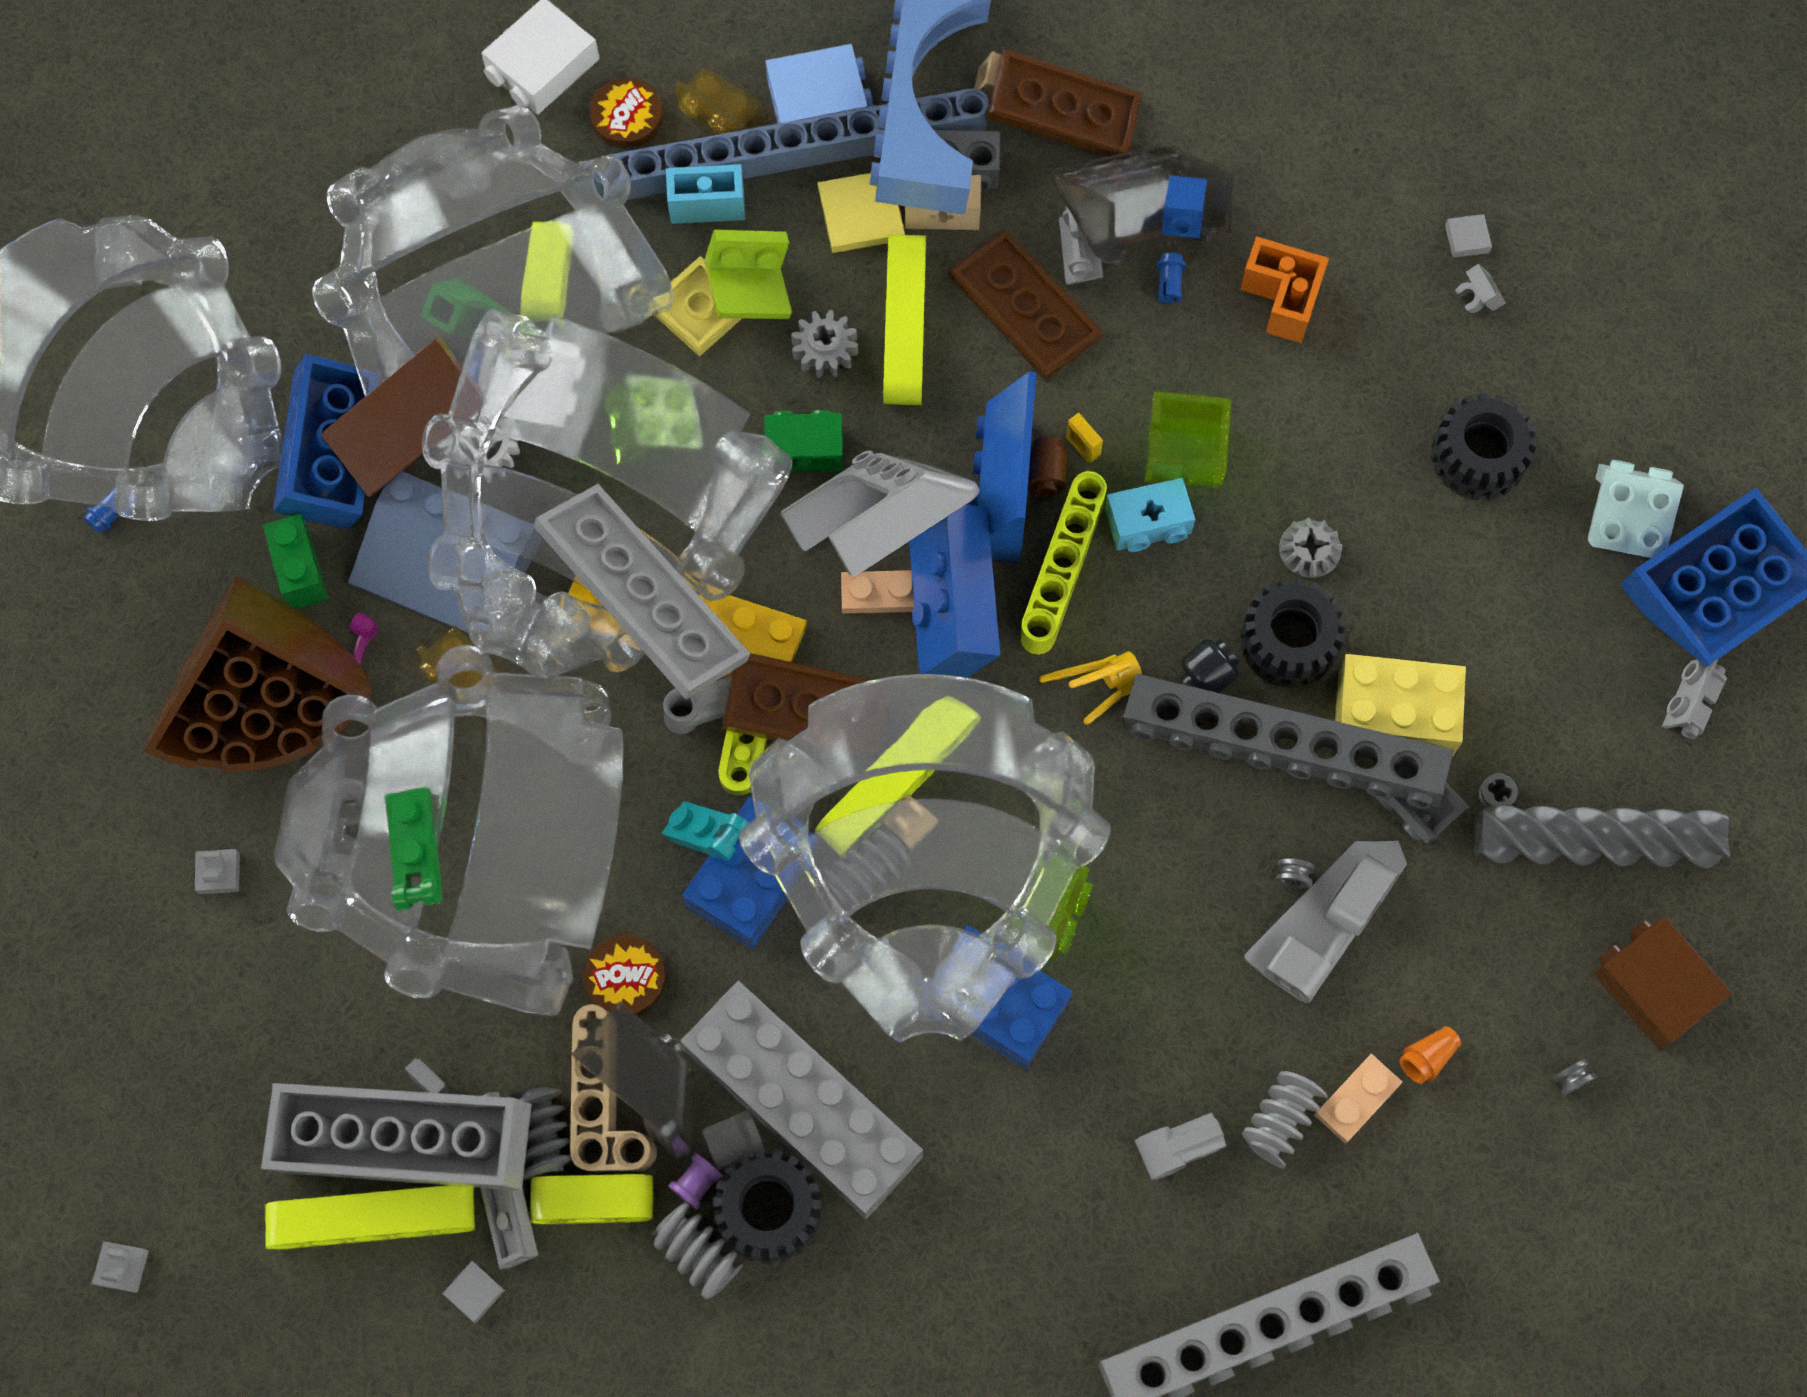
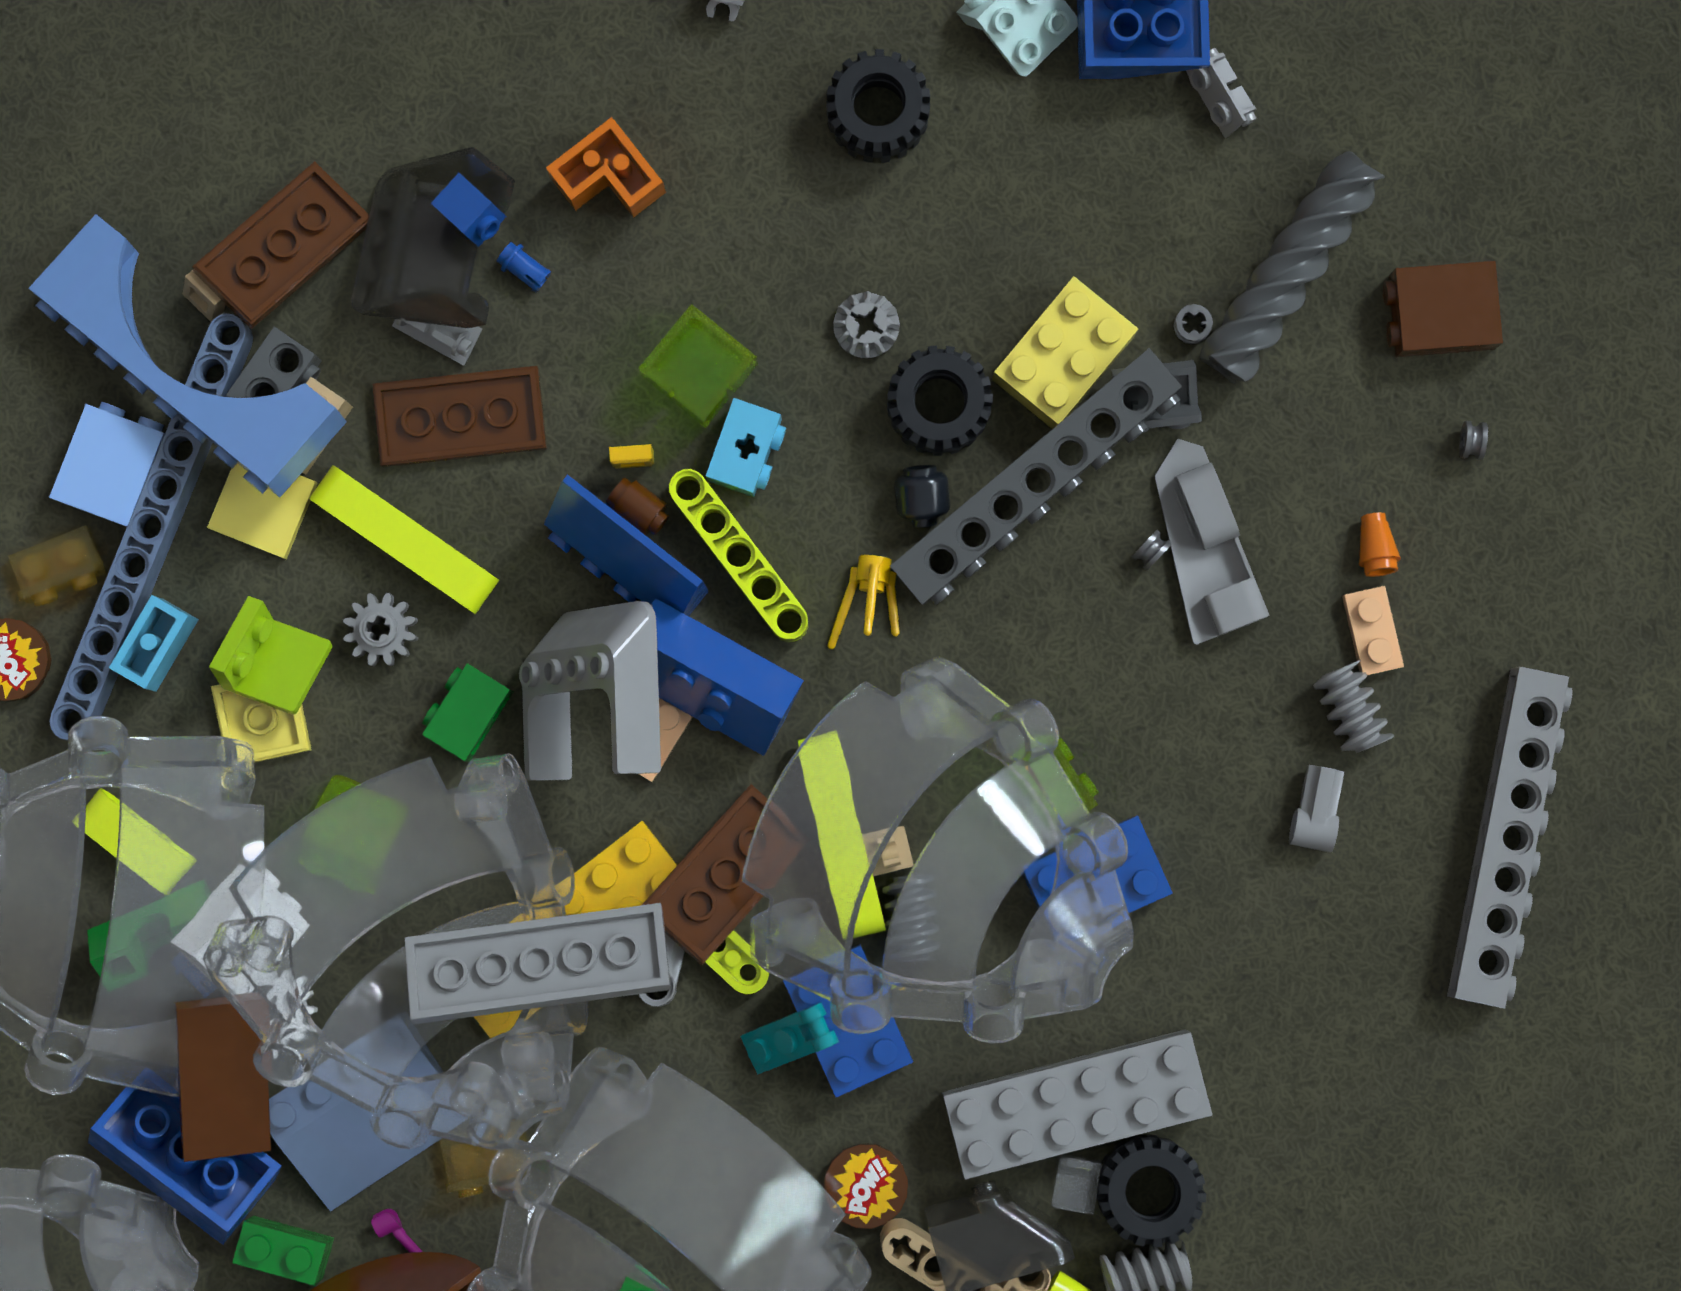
camera: 55 degrees left, 15 degrees up
(696, 1181) = (1087, 1237): medium lavender bush -> none

